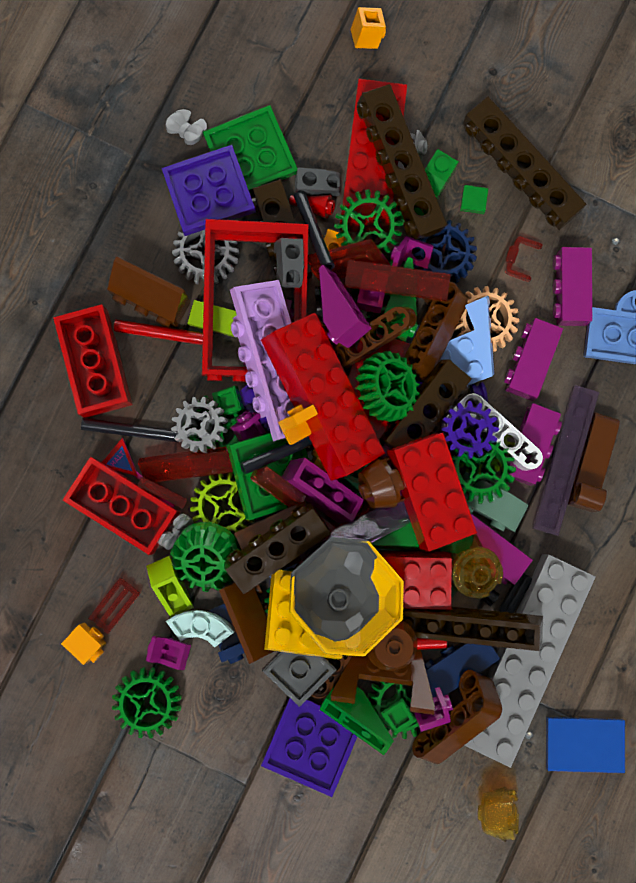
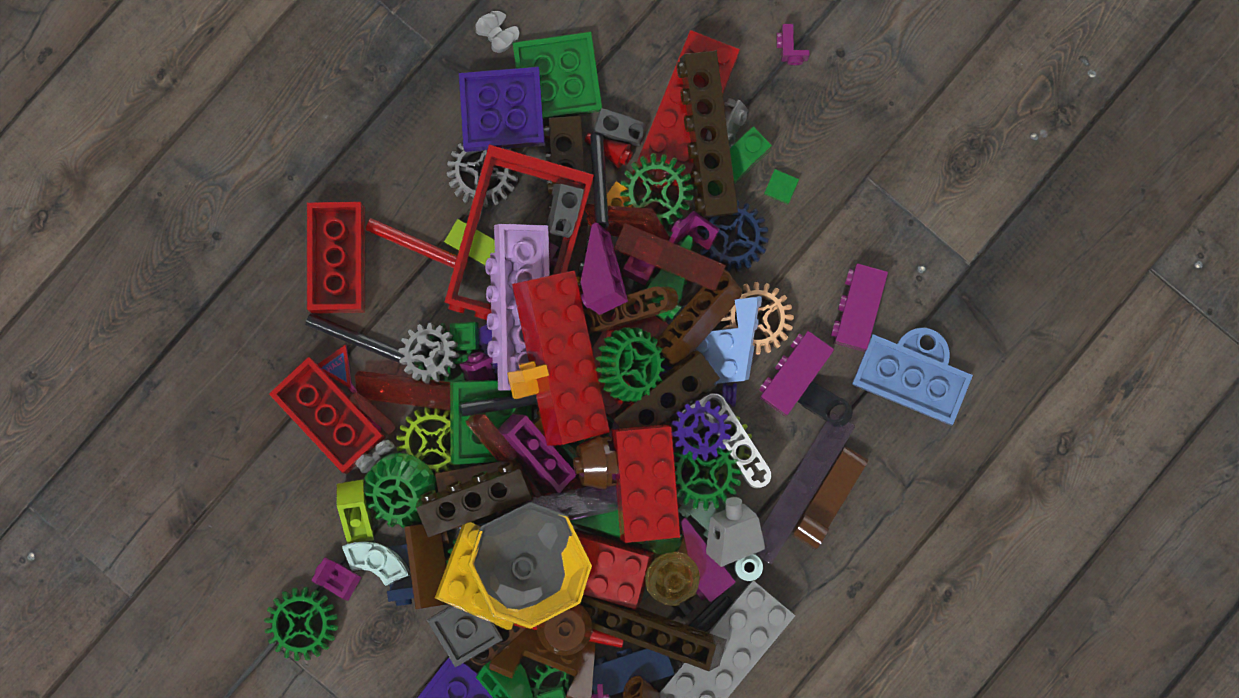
camera: 20 degrees right, 0 degrees up
(85, 643) = (253, 547): light orange brick -> none
(101, 622) = (311, 502): clear red tile -> none
(147, 293) = (410, 201): reddish brown slope -> none
(444, 71) = (786, 42): none -> magenta bracket
(512, 255) = (805, 257): clear red piece -> none
(521, 516) = (734, 533): none -> light grey torso
(531, 543) = (742, 574): none -> light aqua brick
(538, 168) = (819, 100): dark brown brick -> none
(539, 427) = (777, 451): magenta brick -> none
(562, 380) = (822, 401): none -> black piece

